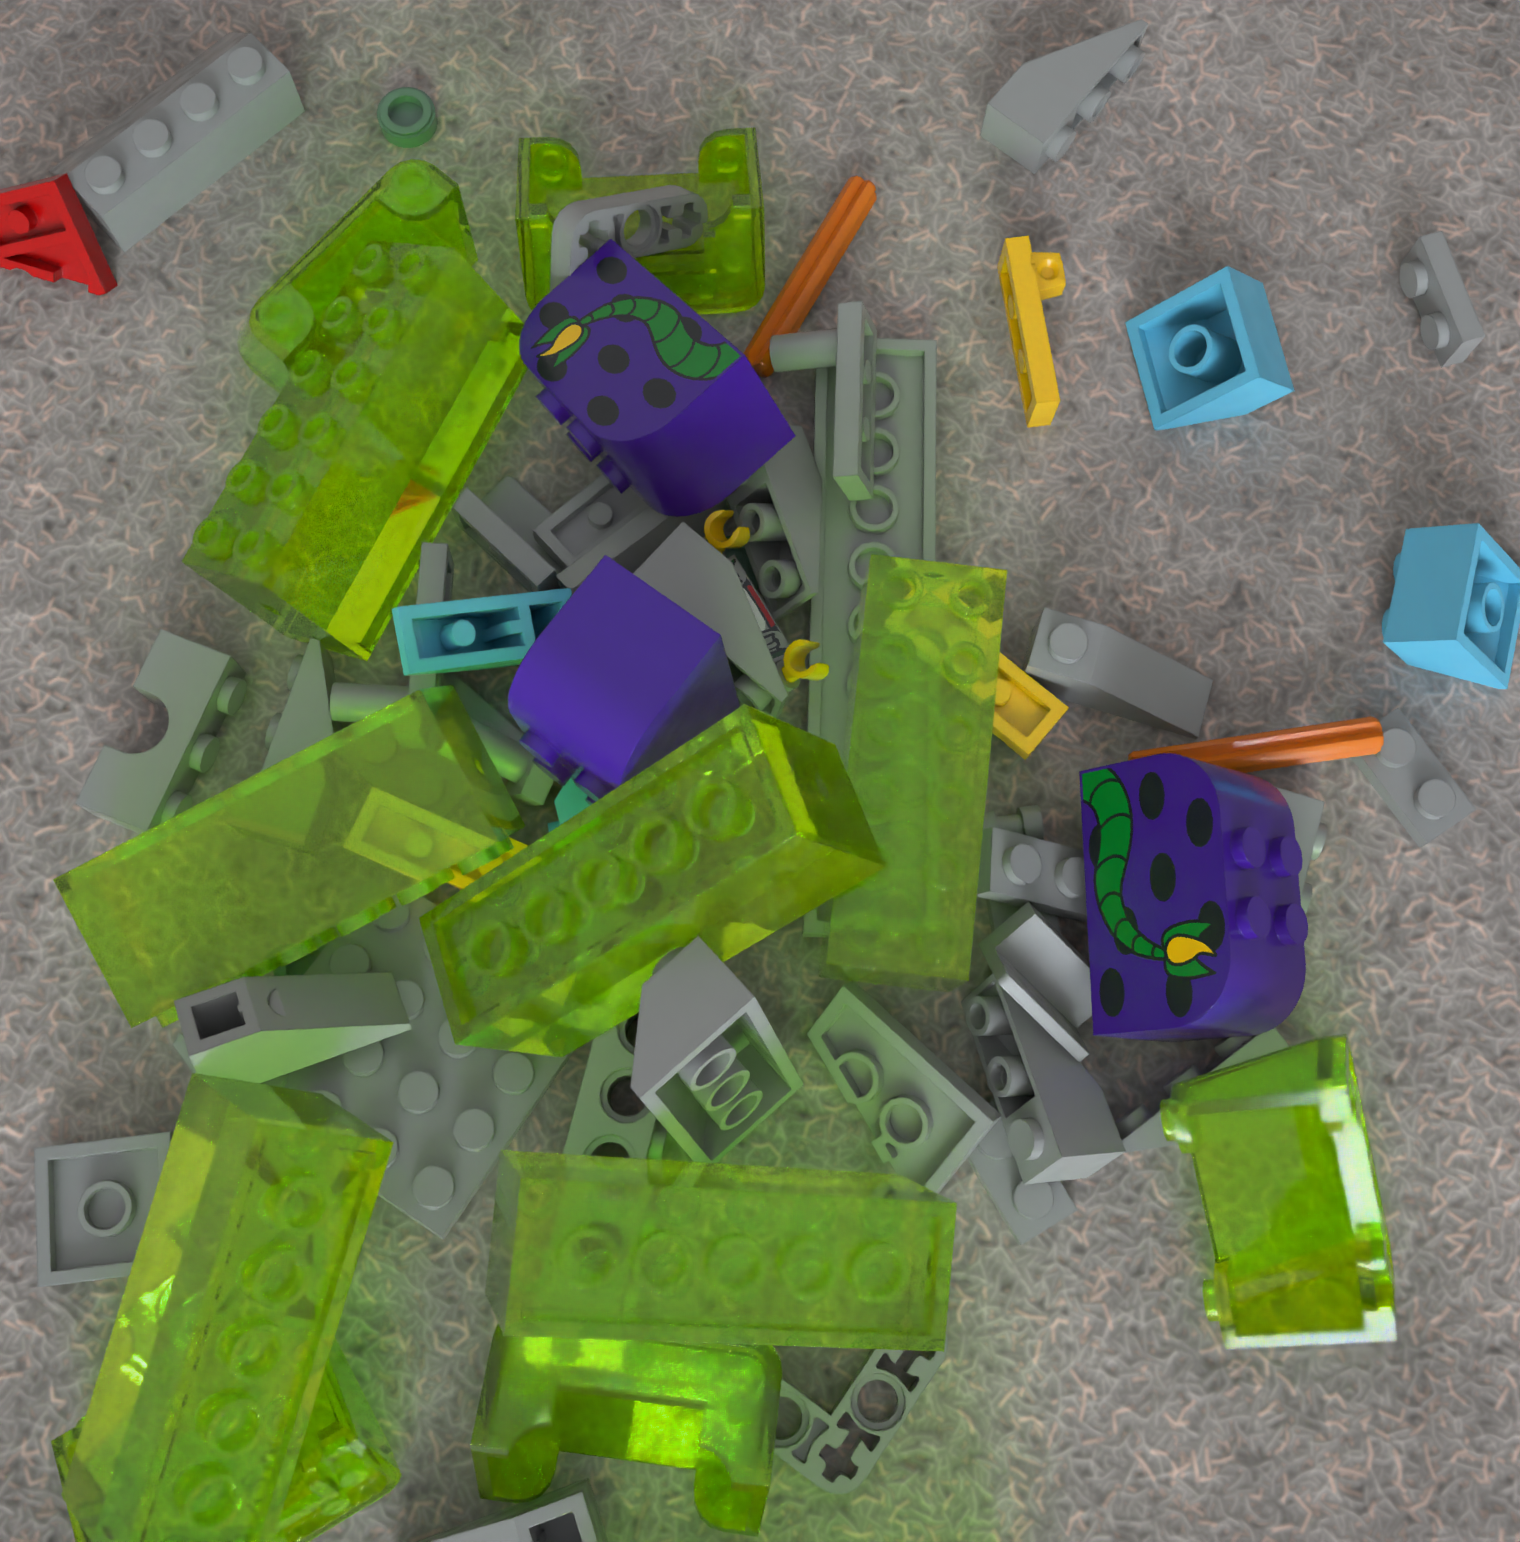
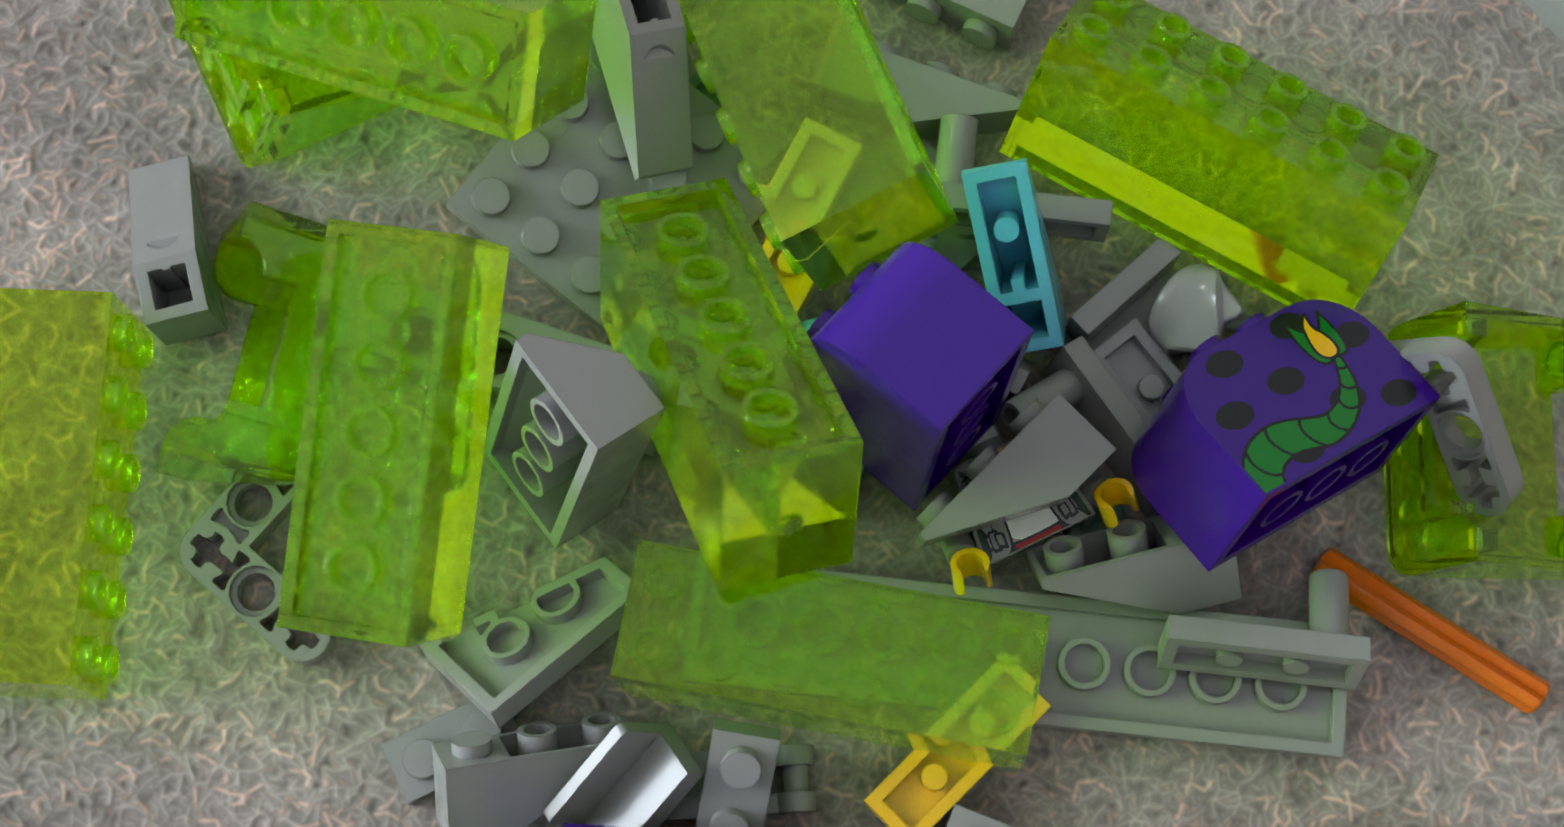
camera: 100 degrees right, 0 degrees up
(406, 205) = (1480, 186): clear neon green windscreen -> none
(528, 469) = (1193, 309): none -> light grey piece

